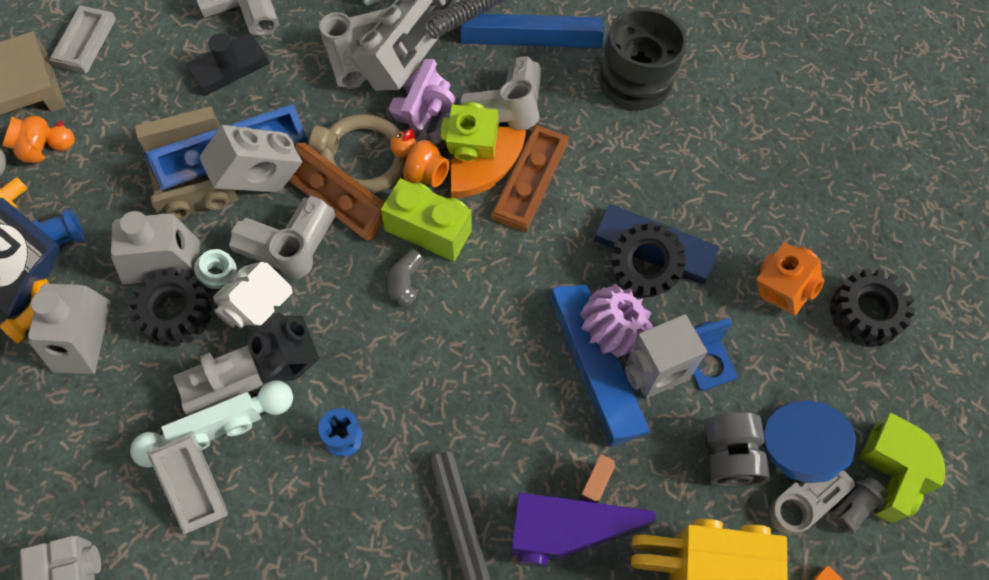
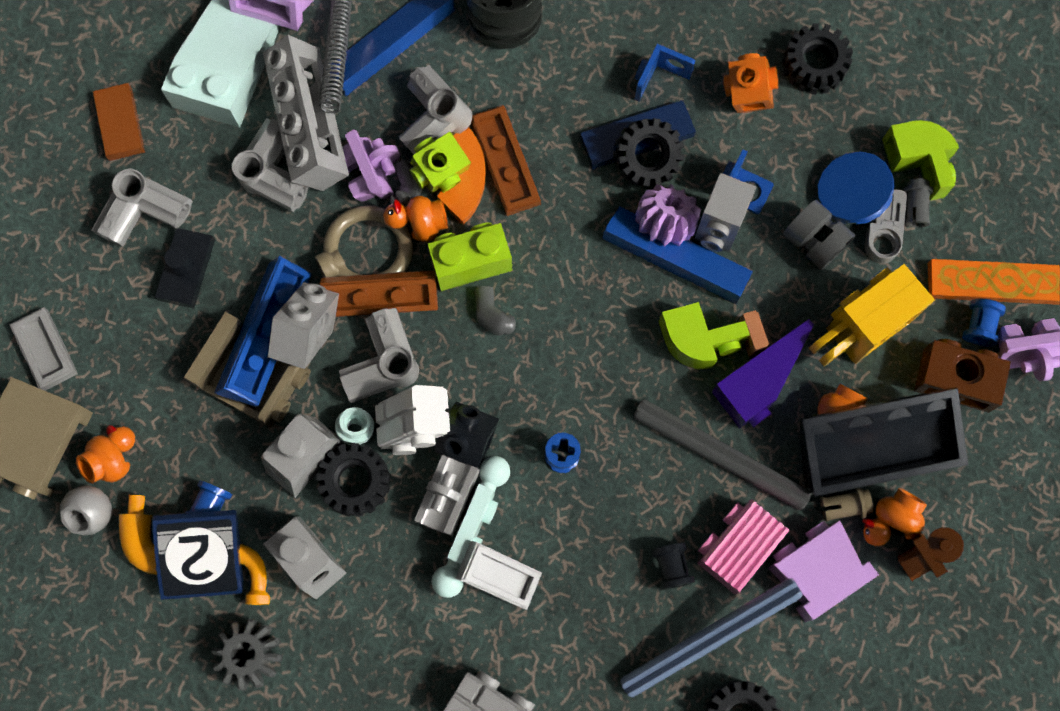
camera: 40 degrees left, 10 degrees up
(538, 445) = (693, 343): none -> lime brick
(714, 199) = (659, 58): none -> blue bracket

